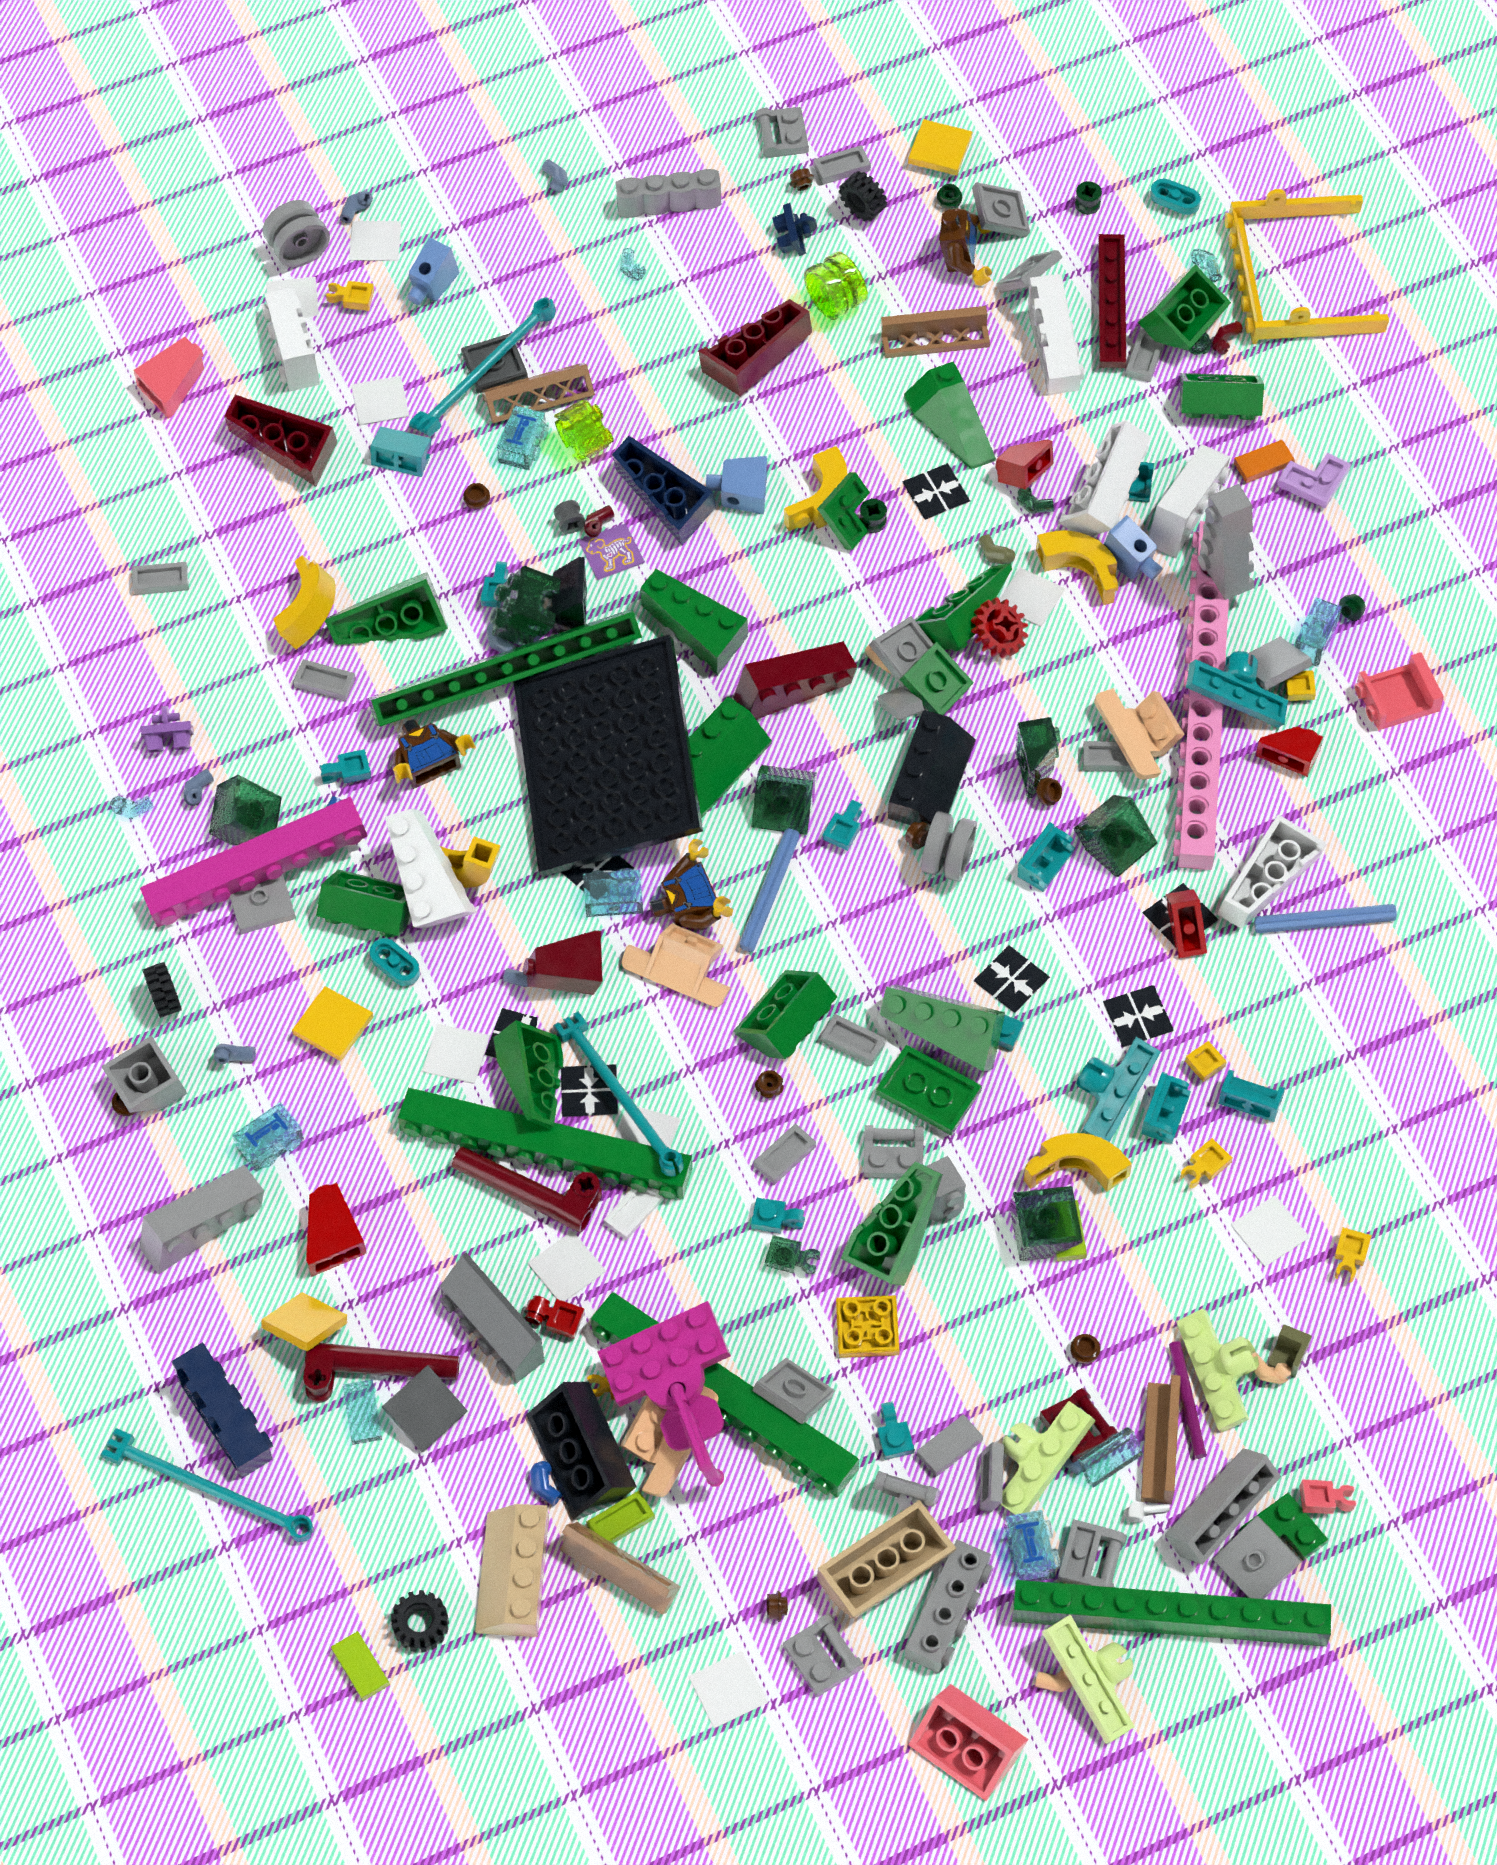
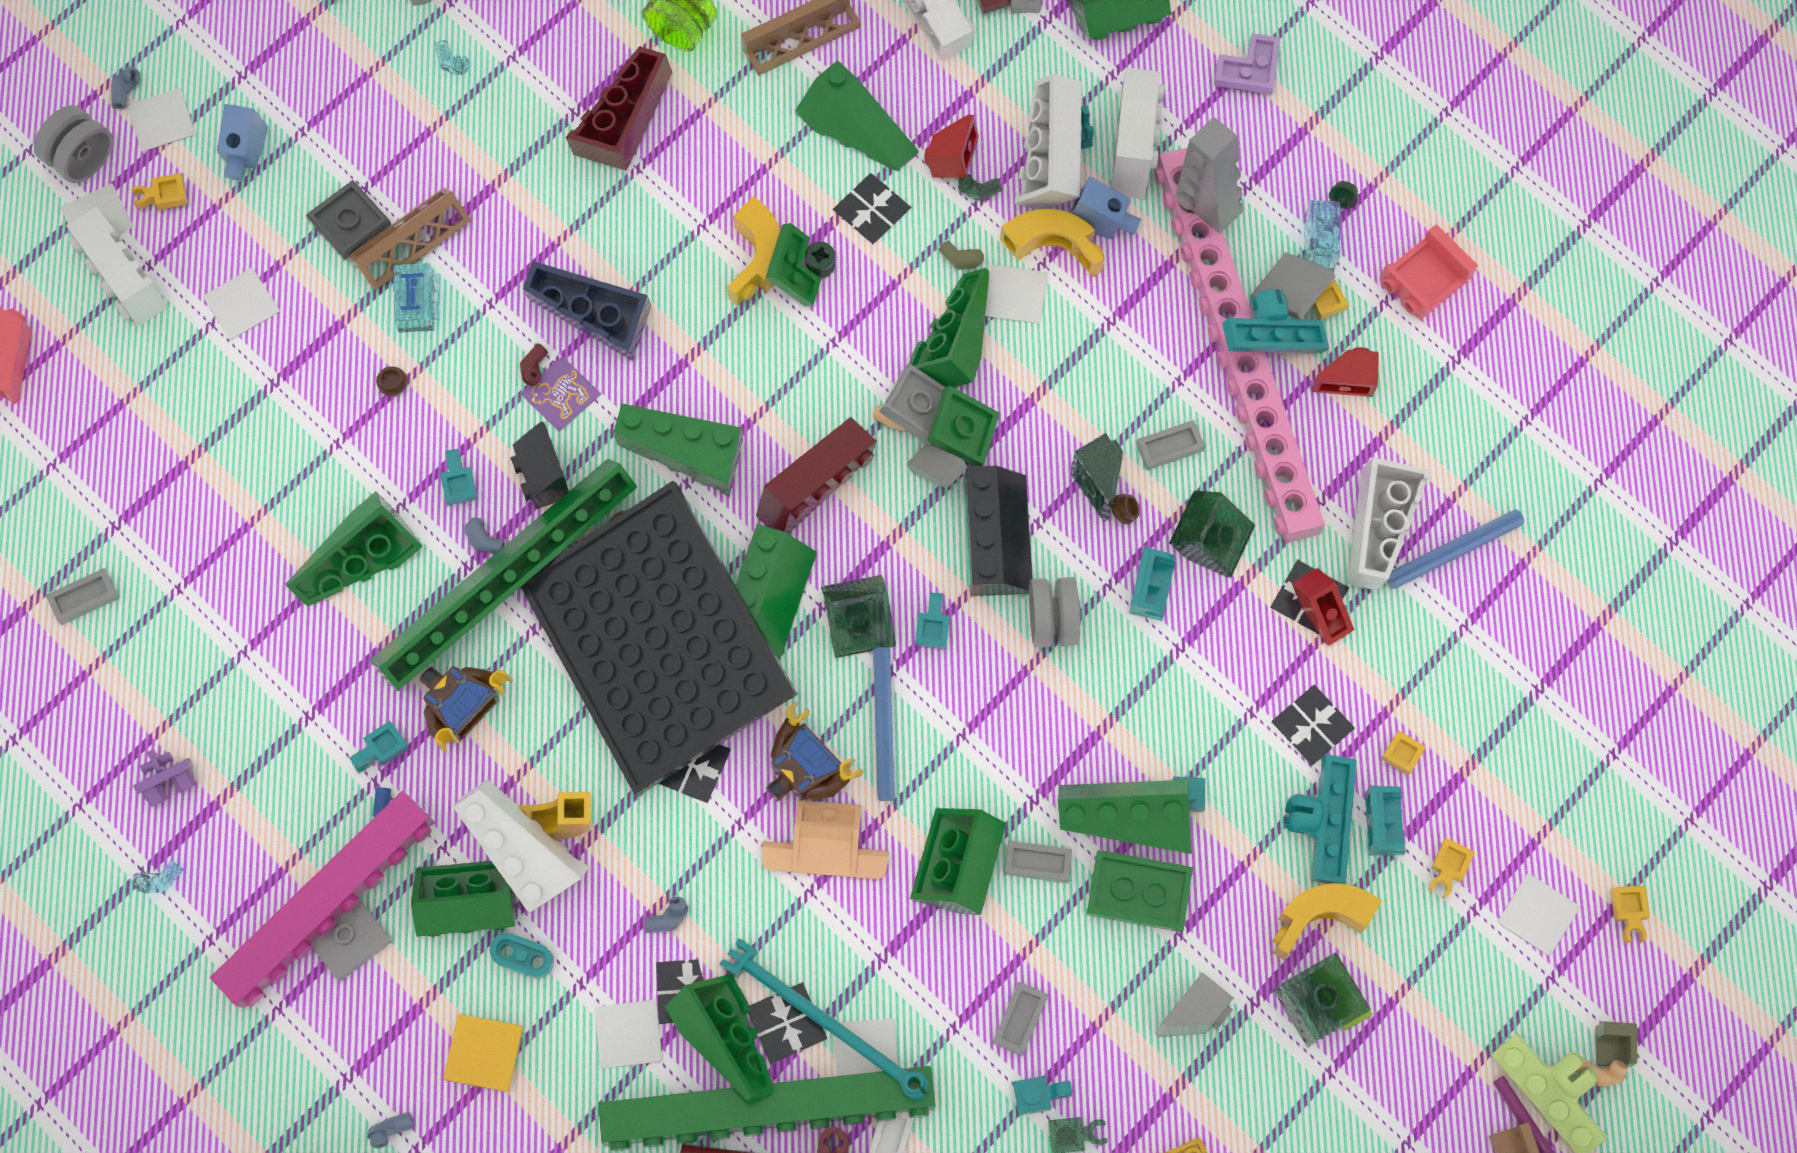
camera: 25 degrees left, 10 degrees up
(162, 989) = (282, 1088): black tyre -> none
(194, 786) = (219, 830): sand blue arm -> none
(243, 811) = (288, 842): clear green slope -> none
(285, 437) = (157, 386): dark red wedge -> none
(310, 606) = (265, 575): yellow arch -> none
(324, 680) = (311, 652): light grey tile -> none
(400, 451) = (288, 357): teal hinge -> none
(429, 423) = (307, 316): teal hinge -> none
(519, 606) = (493, 499): clear green piece -> none
(567, 965) = (711, 893): dark red slope -> none
(569, 516) = (502, 371): dark grey wheel -> none
(583, 430) = (478, 268): clear neon green brick -> none
(613, 893) = (722, 789): clear light blue brick -> none
(741, 483) = (669, 271): medium blue torso -> none
(769, 1077) = (979, 940): reddish brown plate -> none
(891, 1161) = (1133, 984): light grey plate -> none
(894, 1230) = (1176, 1077): green wedge -> none
(917, 835) = (1013, 606): reddish brown plate -> none
(1001, 630) = (1006, 358): red gear -> none
(1011, 979) = (1169, 731): black sticker -> none
(1085, 1348) = (1412, 1120): reddish brown plate -> none
(1140, 732) = (1190, 407): light nougat plate -> none
(1251, 1097) = (1464, 774): teal hinge -> none
(1263, 461) = (1190, 62): orange tile -> none

